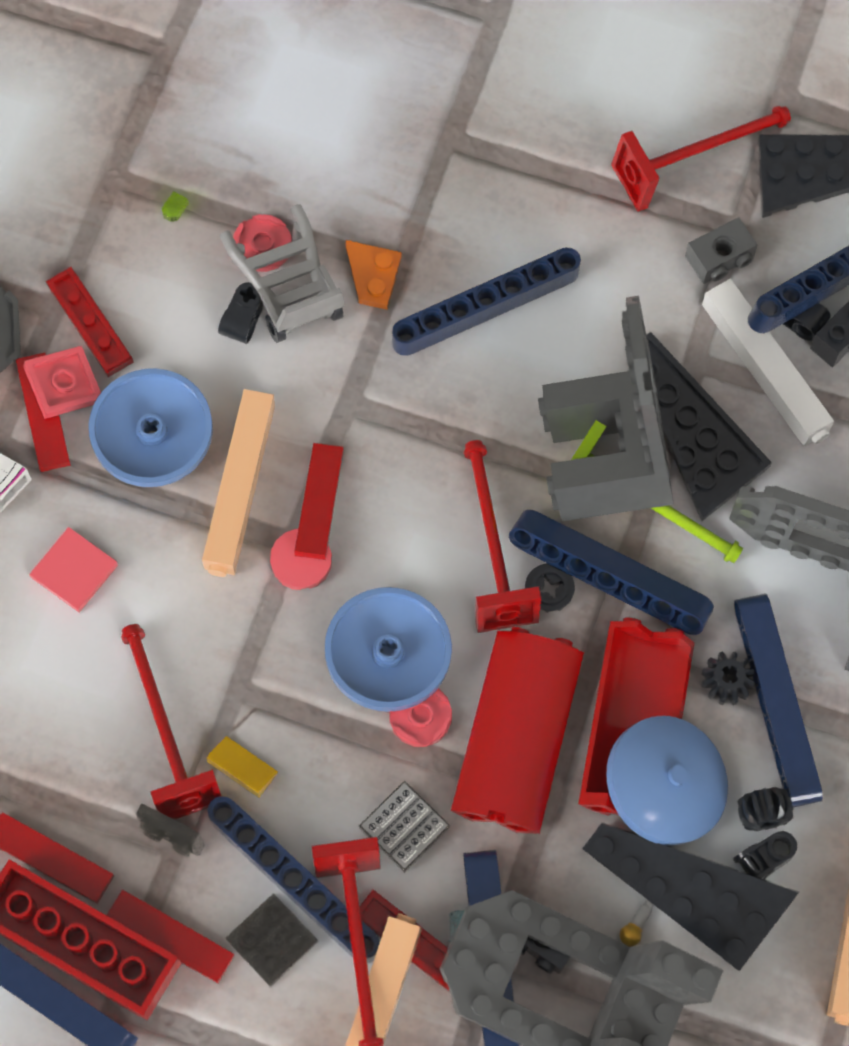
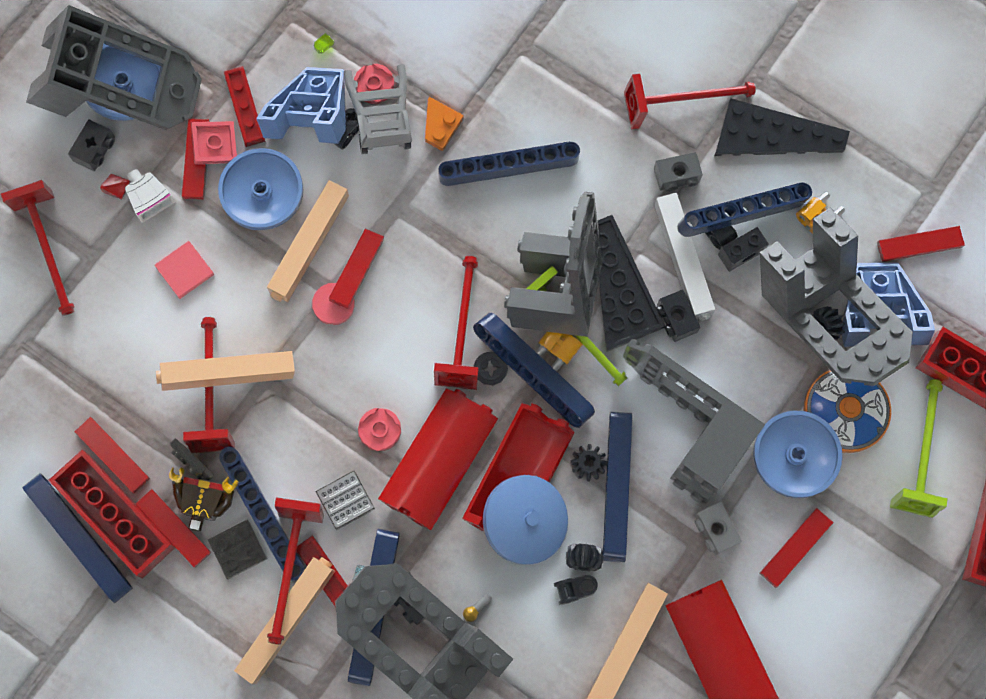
camera: 15 degrees right, 5 degrees up
(180, 691) = (225, 371): none -> light nougat brick
(182, 288) = (309, 100): none -> medium blue wedge
(200, 881) = (201, 498): none -> dark brown torso
(242, 766) = (253, 430): yellow slope -> none
(388, 649) = (370, 380): medium blue dish -> none
(636, 528) = (561, 346): none -> light orange piece
(709, 900) = (526, 603): black wing -> none
(783, 428) = (678, 303): none -> black brick

